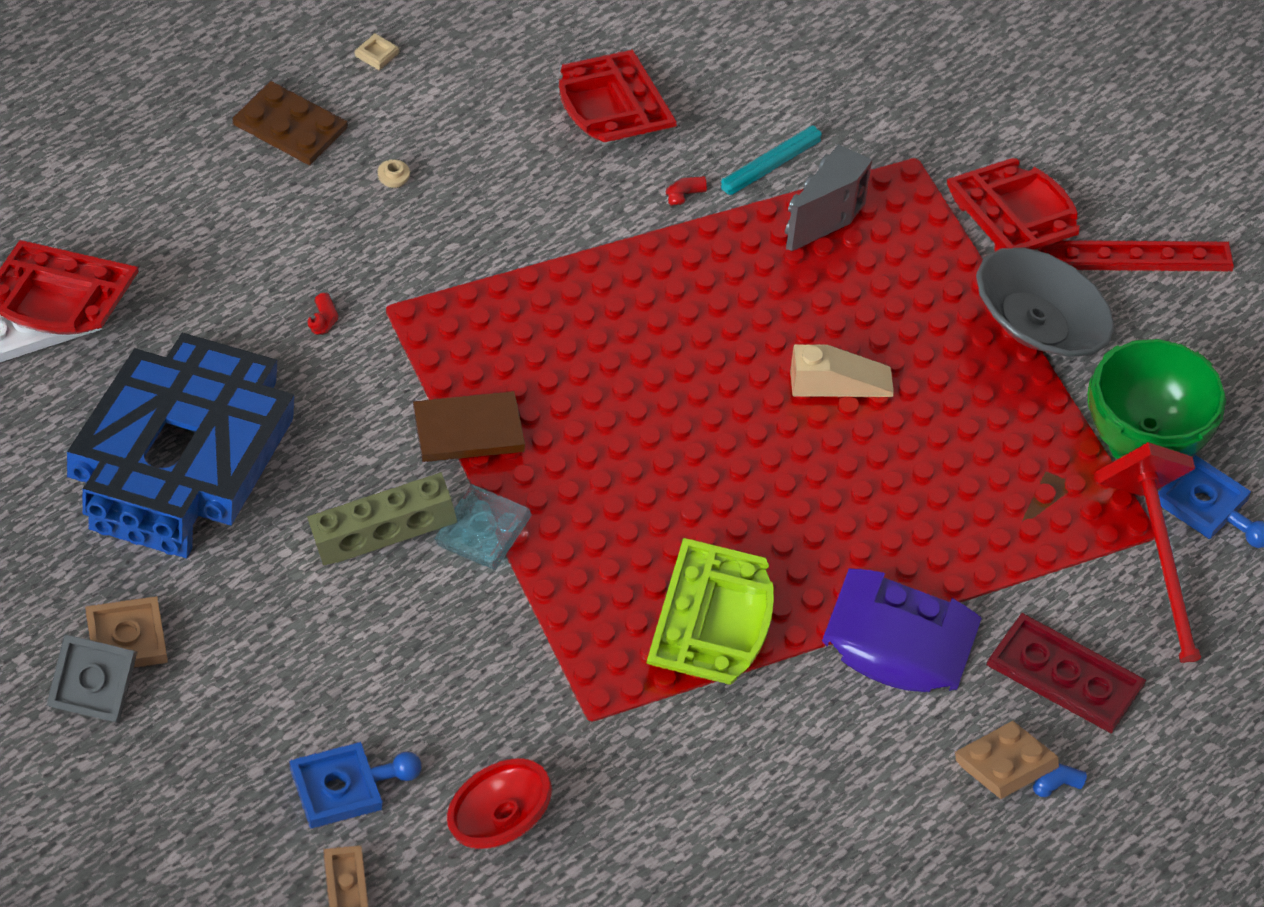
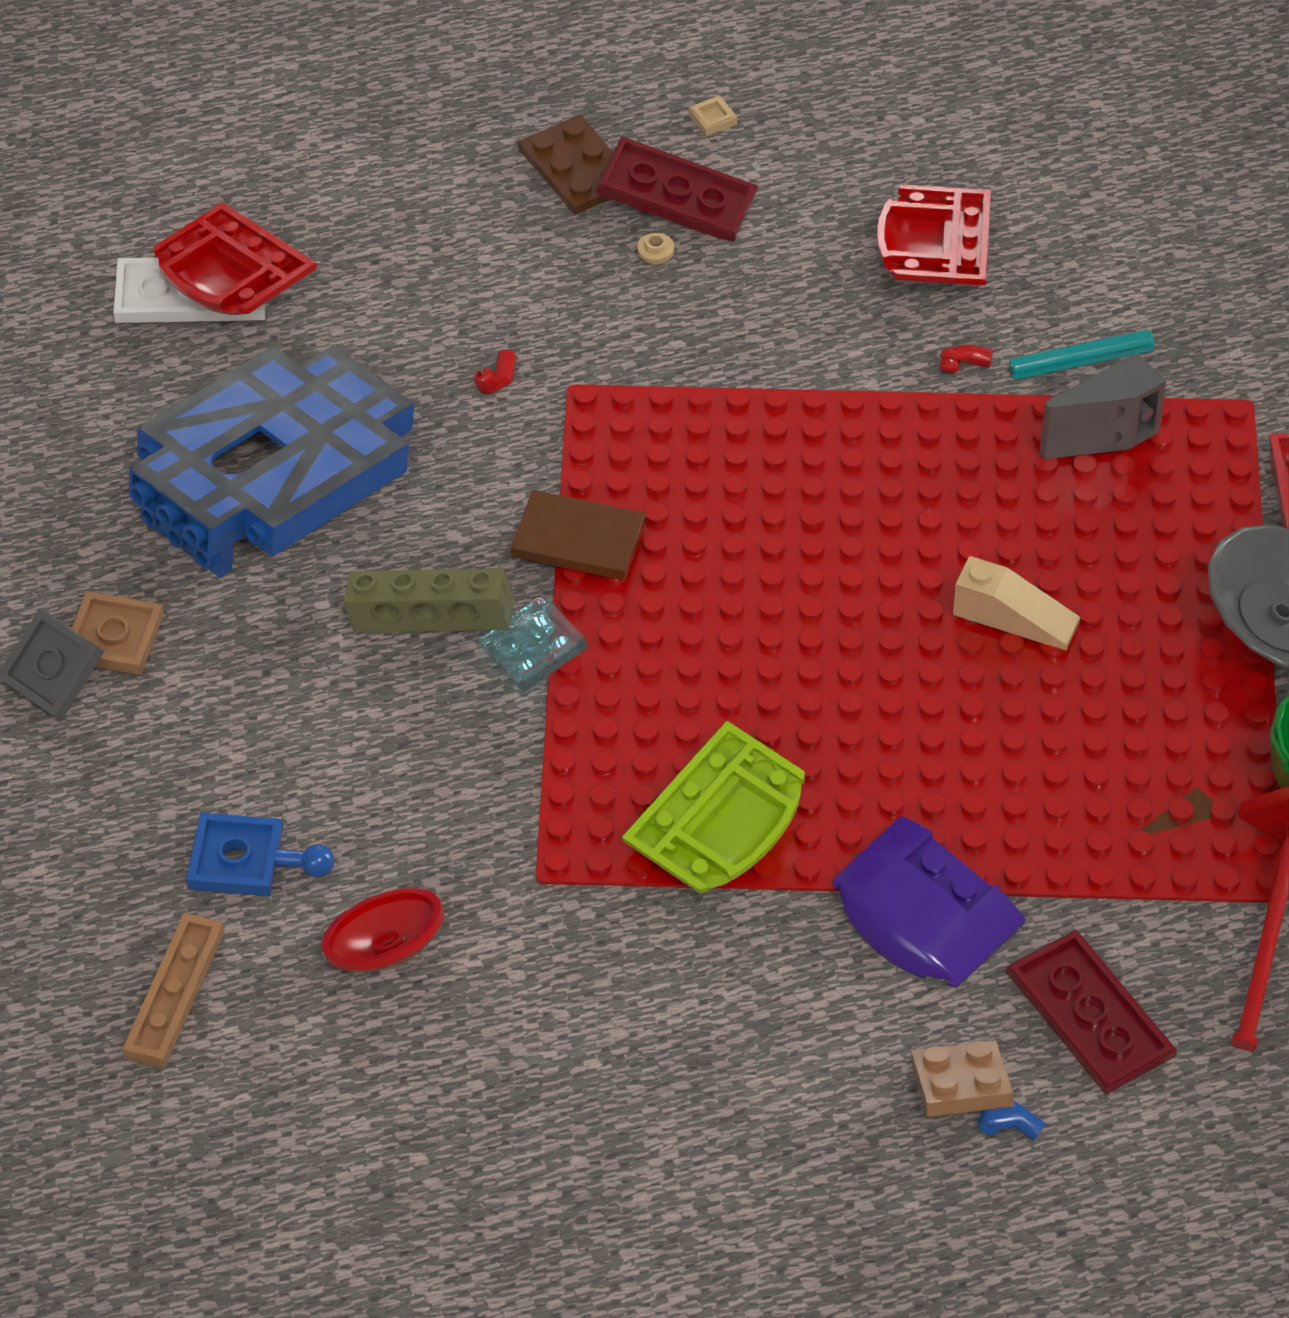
camera: 30 degrees right, 0 degrees up
(385, 120) = (676, 189): none -> dark red tile

